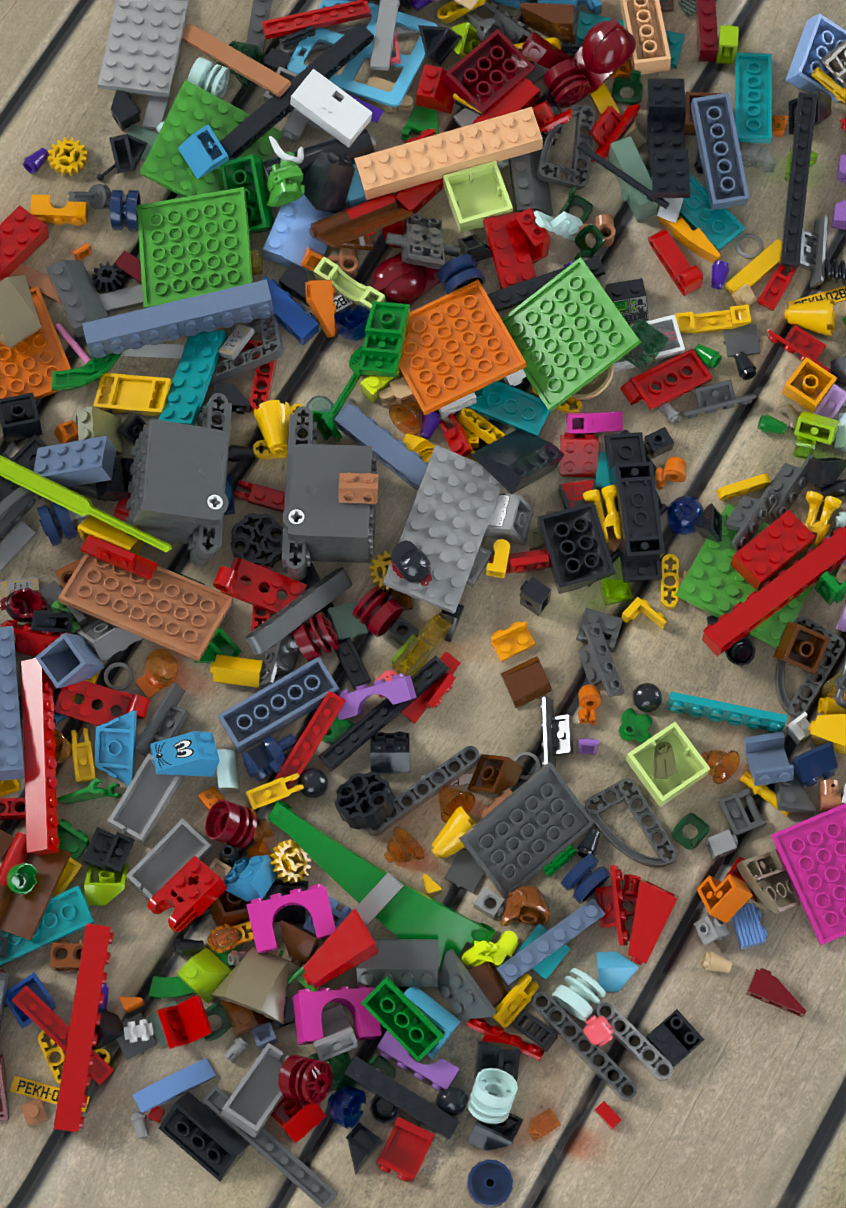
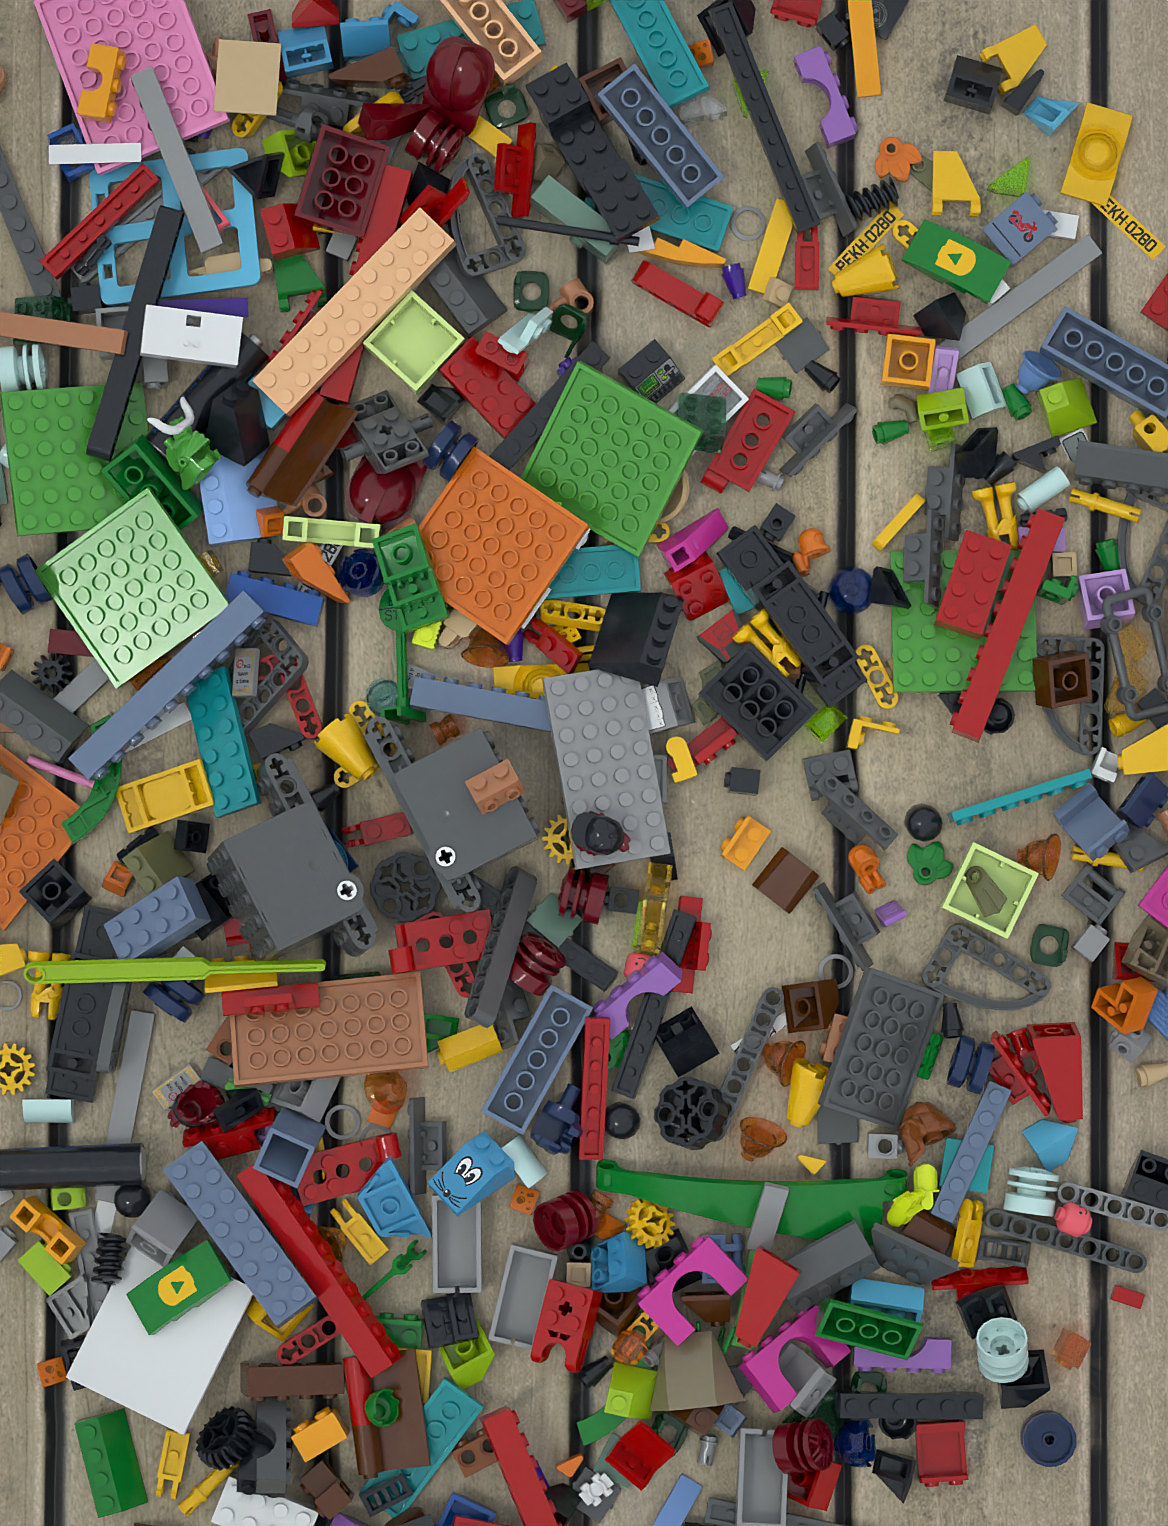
camera: 30 degrees left, 15 degrees up
(203, 152) = (77, 472): dark azure slope -> none
(272, 791) = (587, 1158): yellow hinge -> none
(452, 1100) = (963, 1377): black hair -> none

